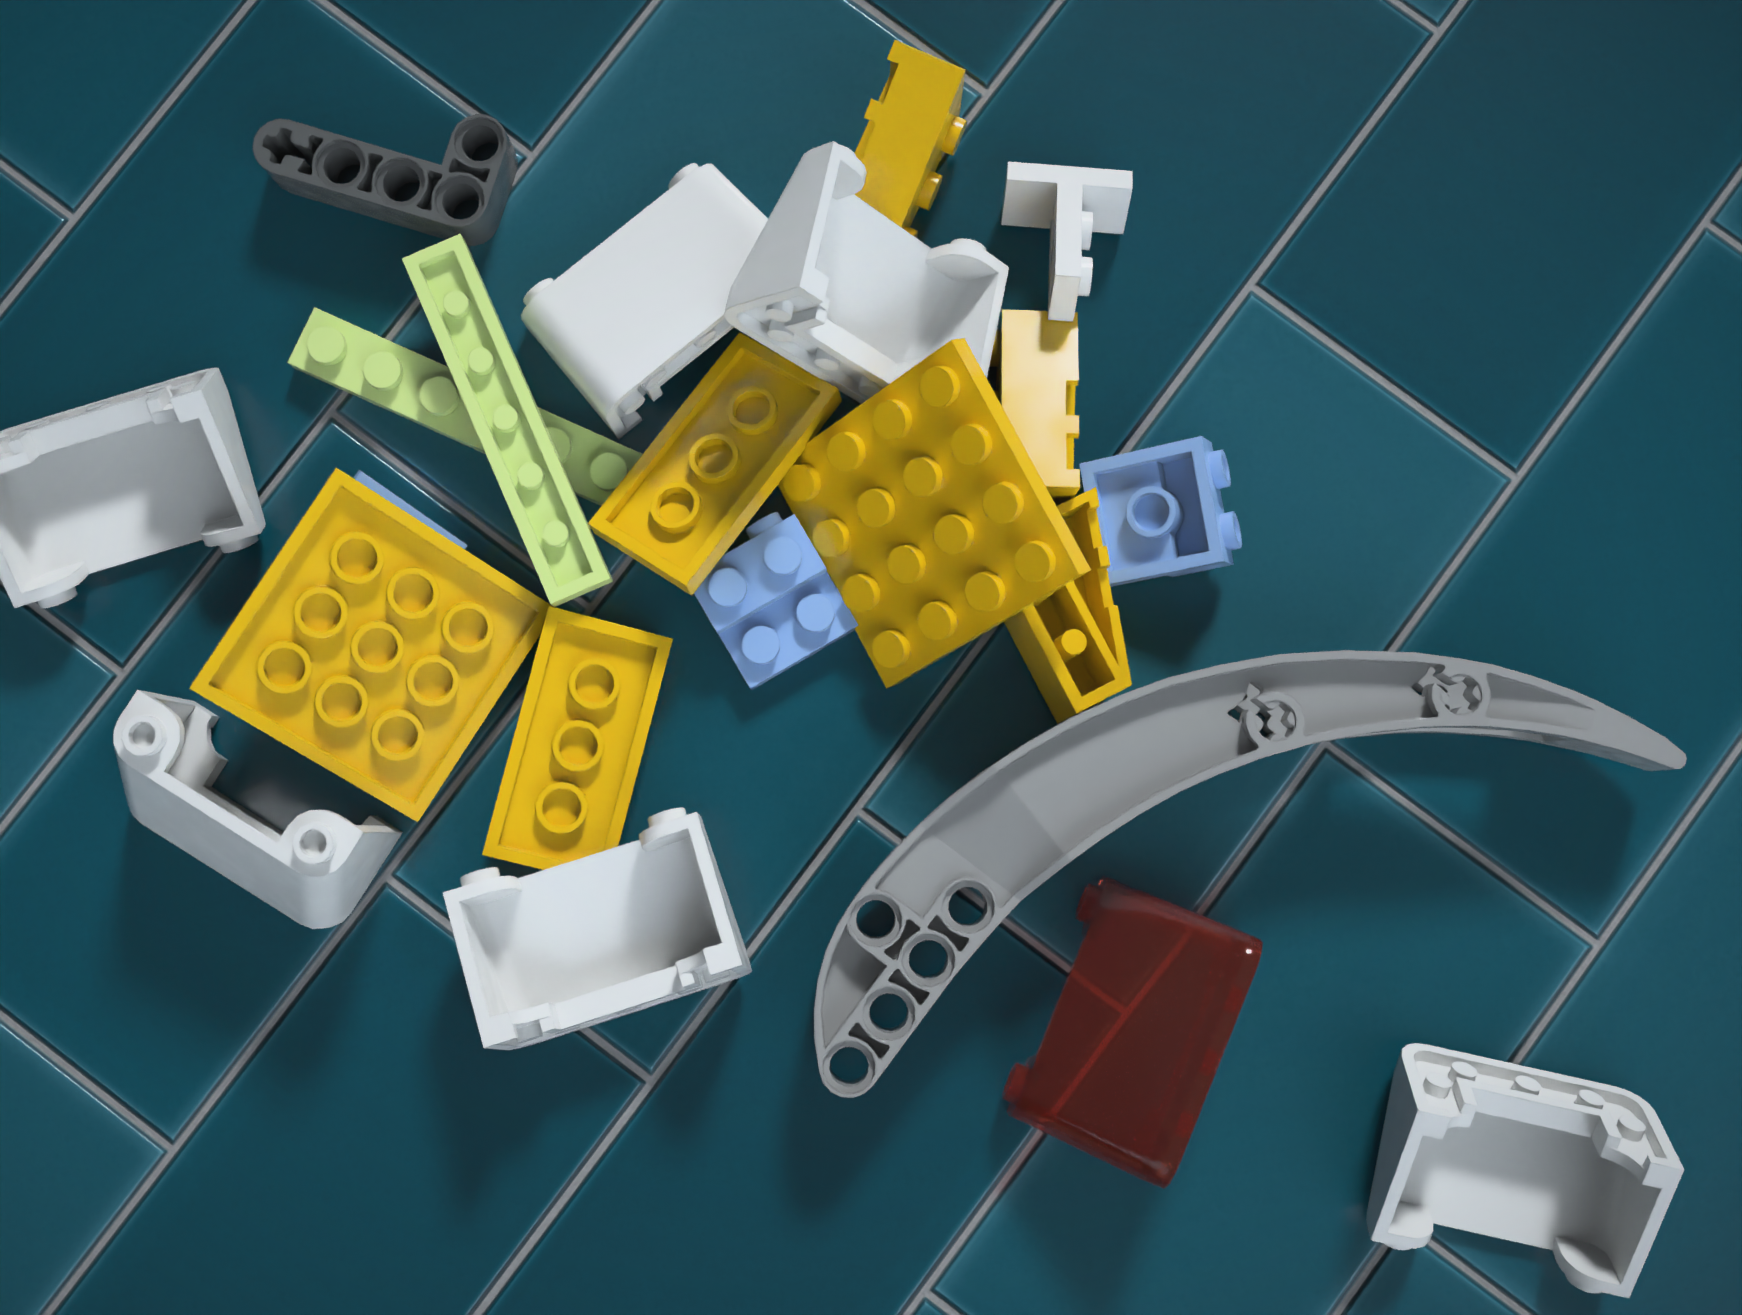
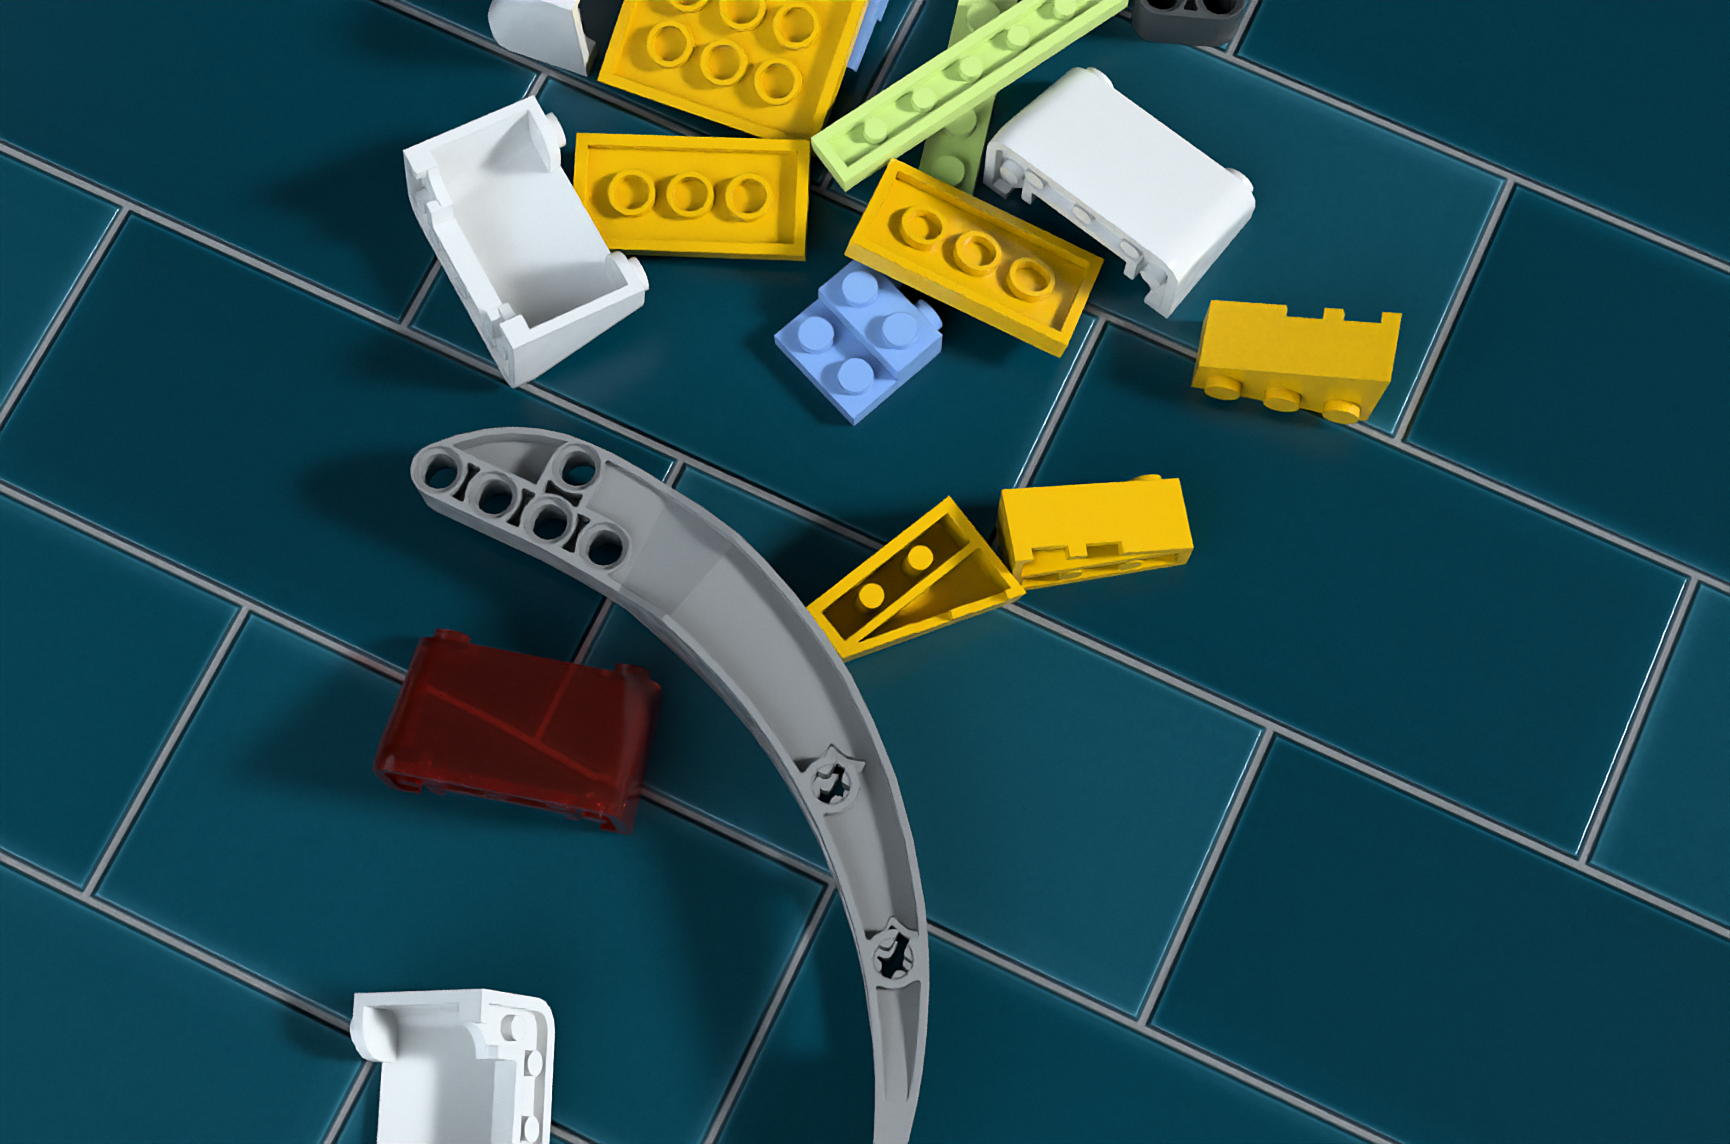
camera: 80 degrees right, 10 degrees down
(855, 290) = (1158, 344): white windscreen -> none
(930, 514) = (963, 443): yellow plate -> none
(1072, 206) = (1297, 523): white bracket -> none
(1163, 510) = (1021, 671): light blue plate -> none

